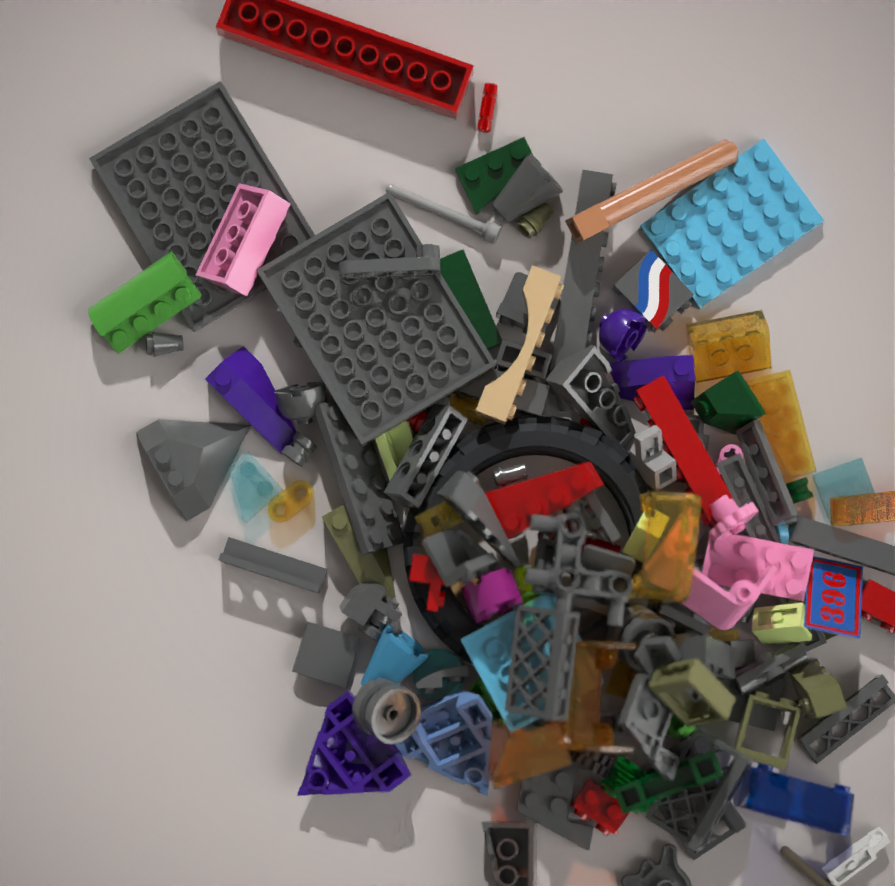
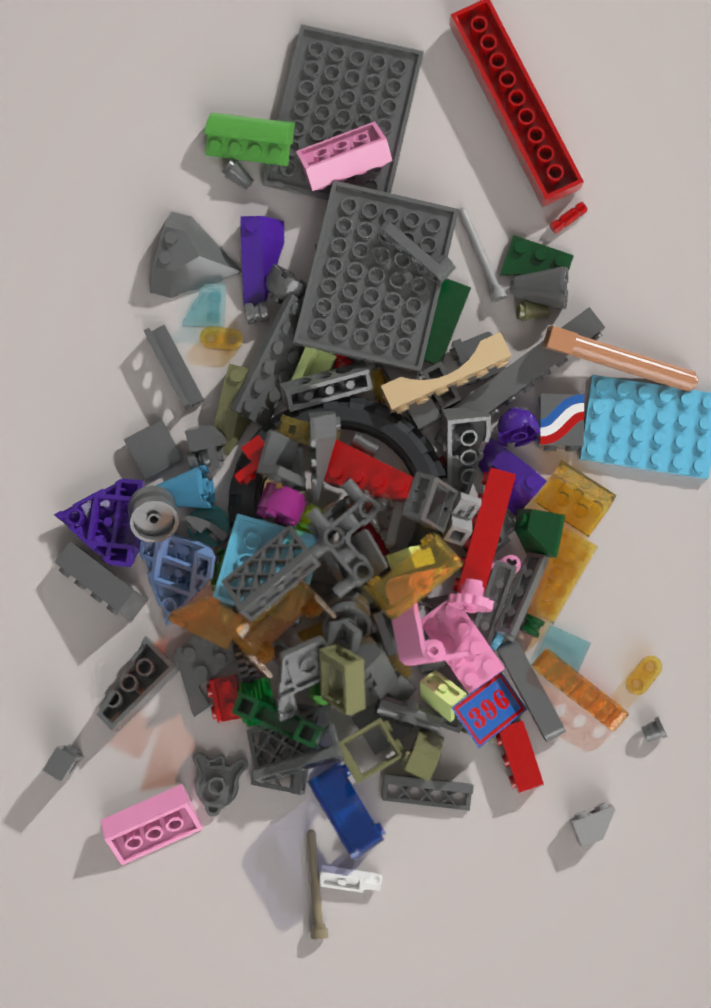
camera: 45 degrees right, 0 degrees up
(394, 813) = (101, 581): none -> dark grey wedge
(626, 477) = (430, 510): none -> dark grey window

